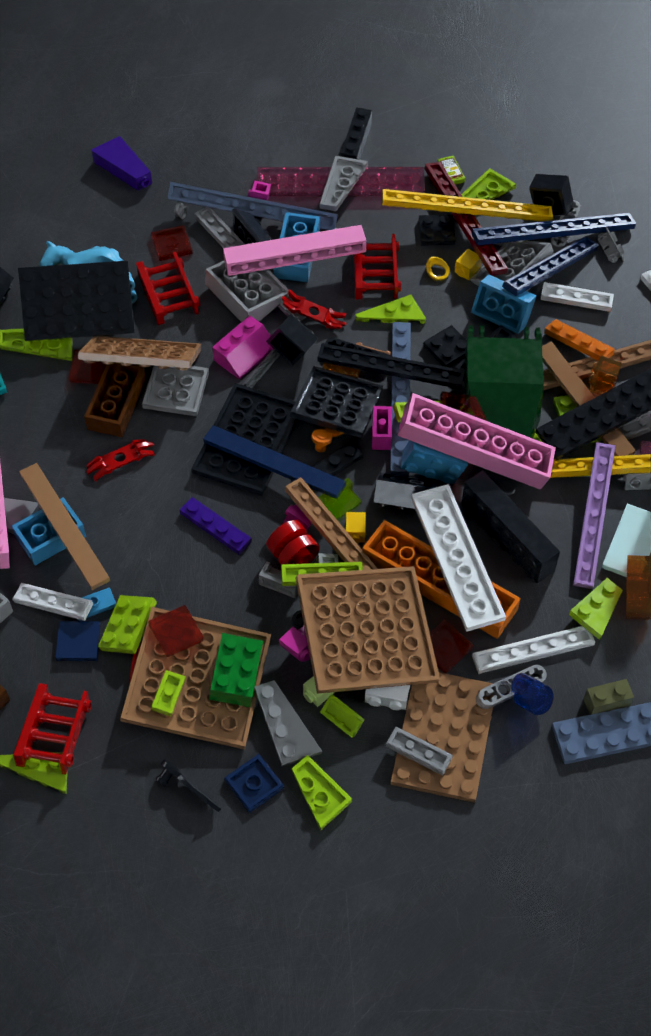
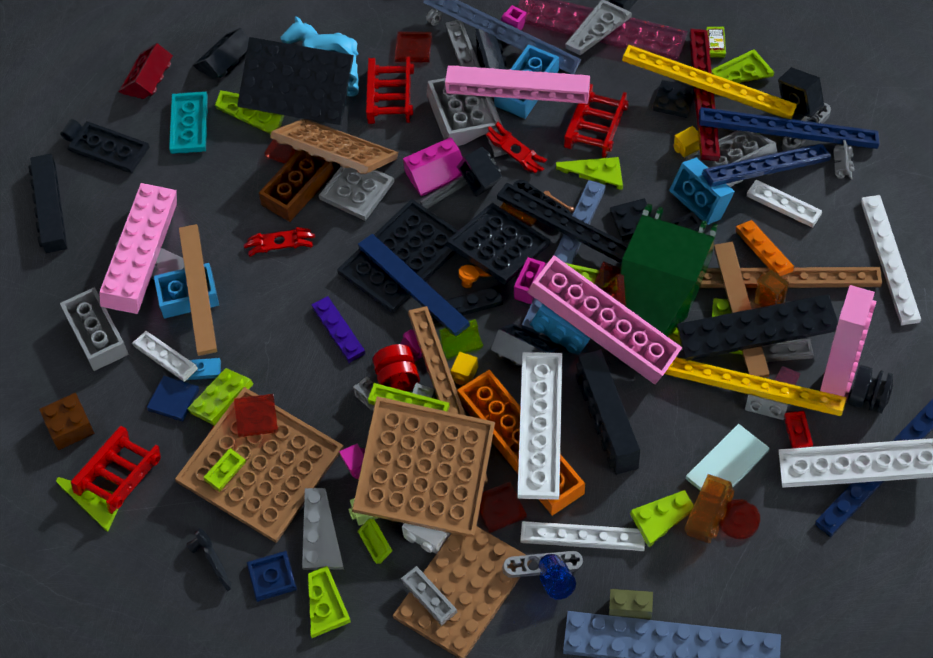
camera: 25 degrees right, 0 degrees up
(236, 670) = (293, 467): green brick -> none
(439, 262) = (655, 129): yellow piece -> none
(594, 516) = (697, 425): lavender tile -> none

